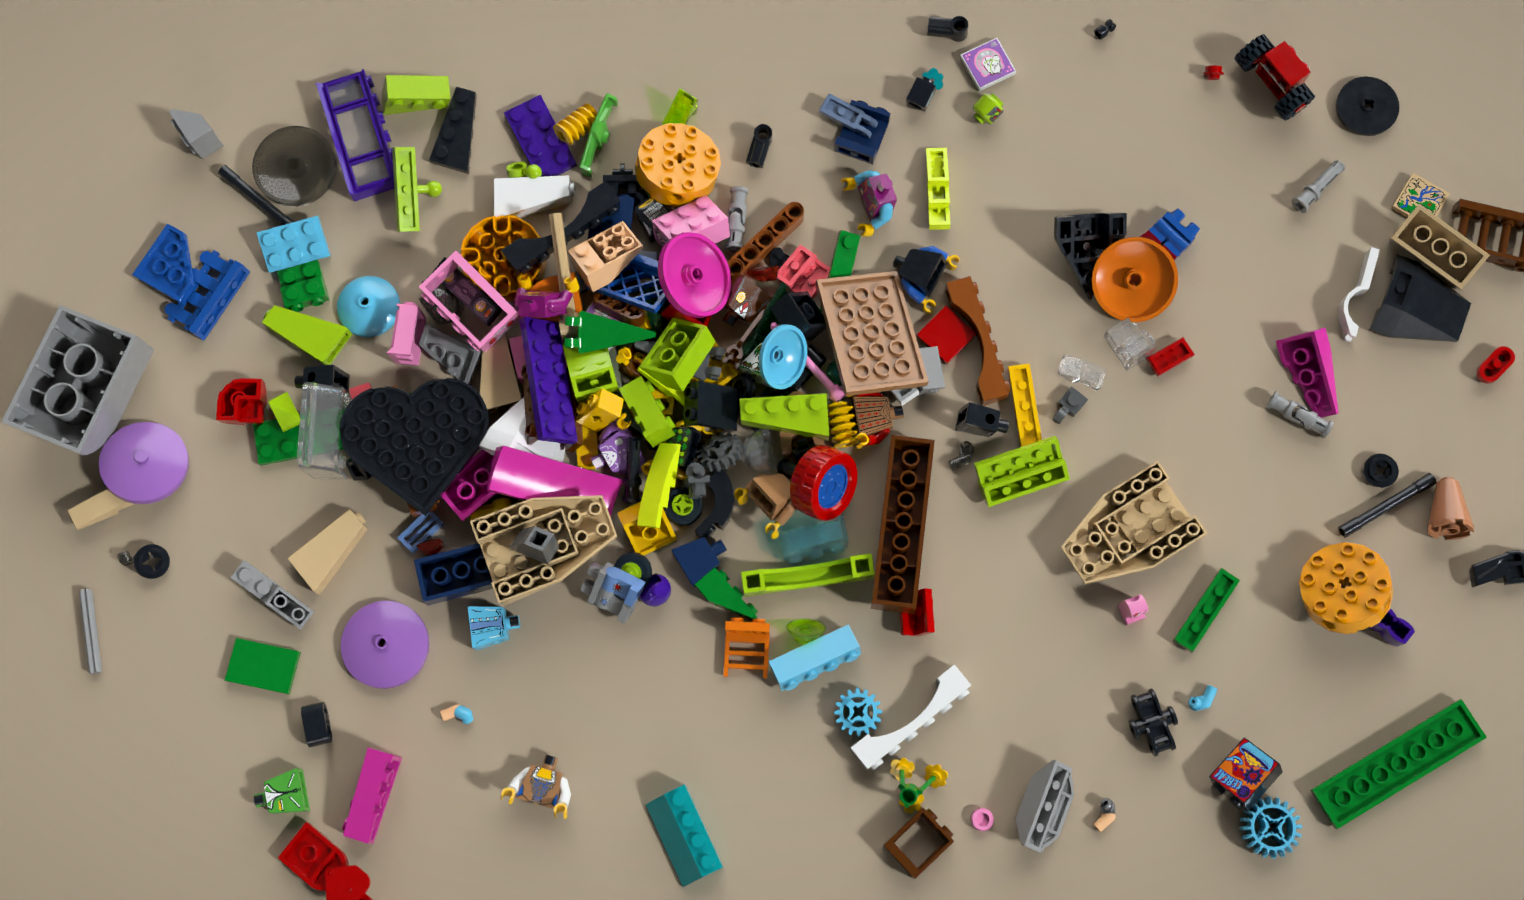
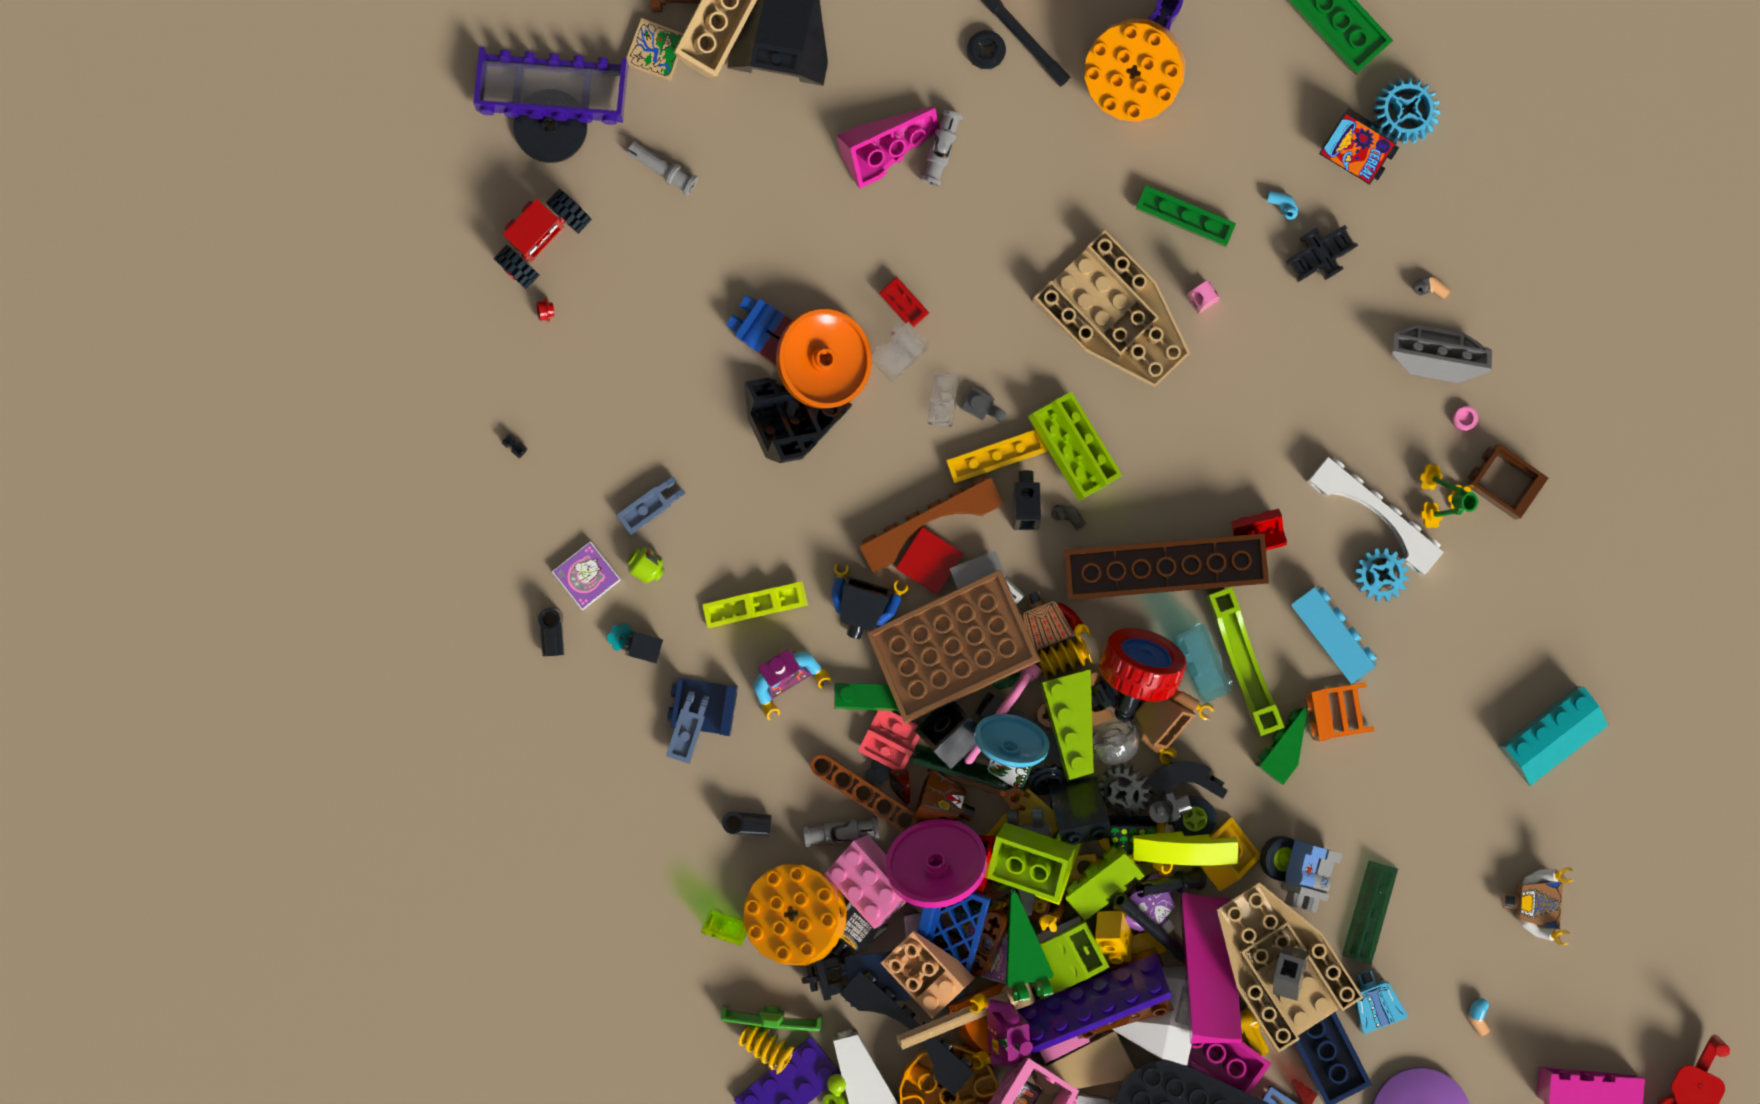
camera: 105 degrees left, 10 degrees up
(568, 640) = (1369, 912): none -> clear green slope
(617, 425) = (1132, 911): none -> black piece
(656, 591) = (1298, 826): dark purple hair -> none
(698, 558) = (1251, 787): dark blue torso -> none
(805, 630) = (1304, 650): clear neon green piece -> none
(1035, 121) = (648, 507): none -> sand blue hinge
(1348, 327) = (775, 100): white piece -> none
(1401, 108) = (550, 87): none -> window

